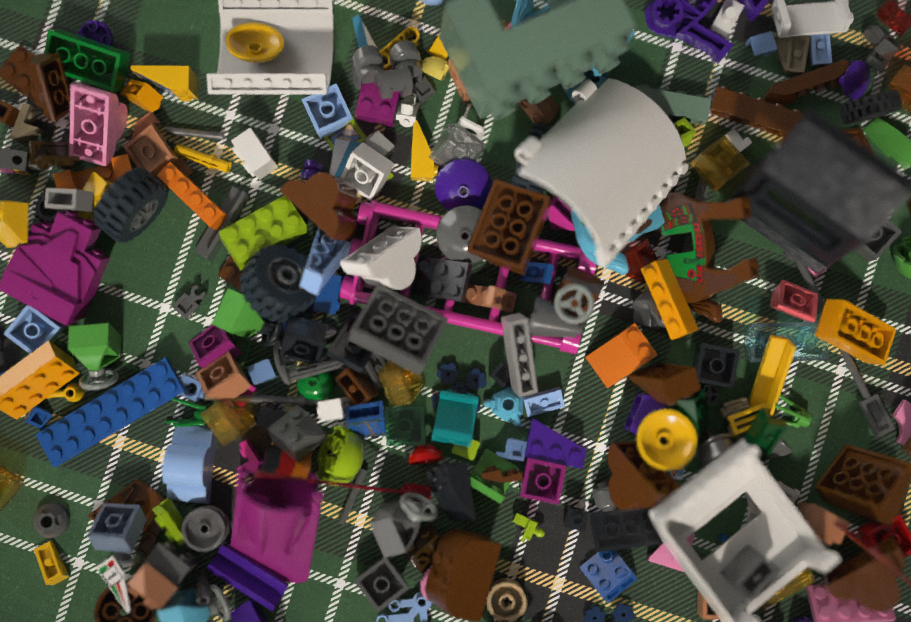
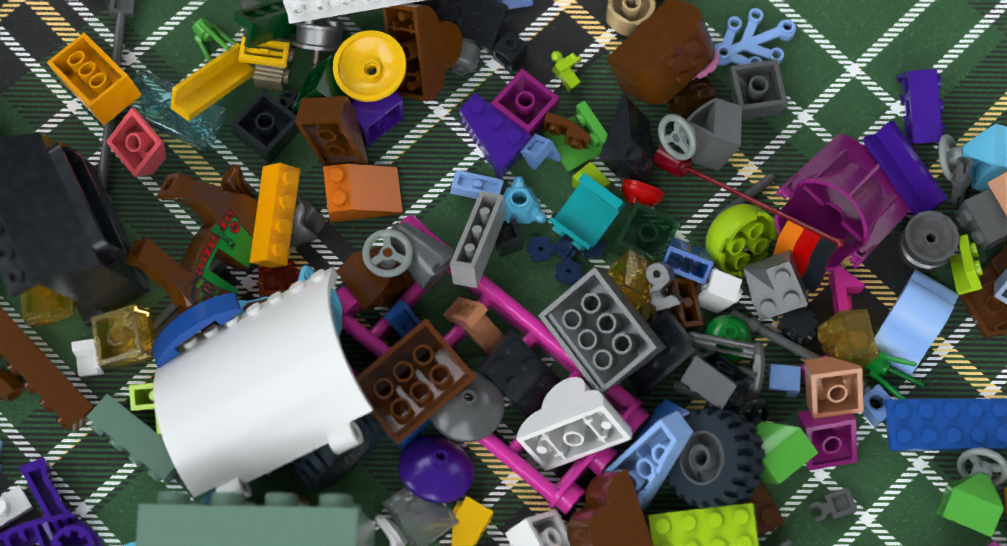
camera: 155 degrees left, 15 degrees down
(378, 392) = (661, 275): none -> leg
(678, 190) = (217, 309): none -> blue slope

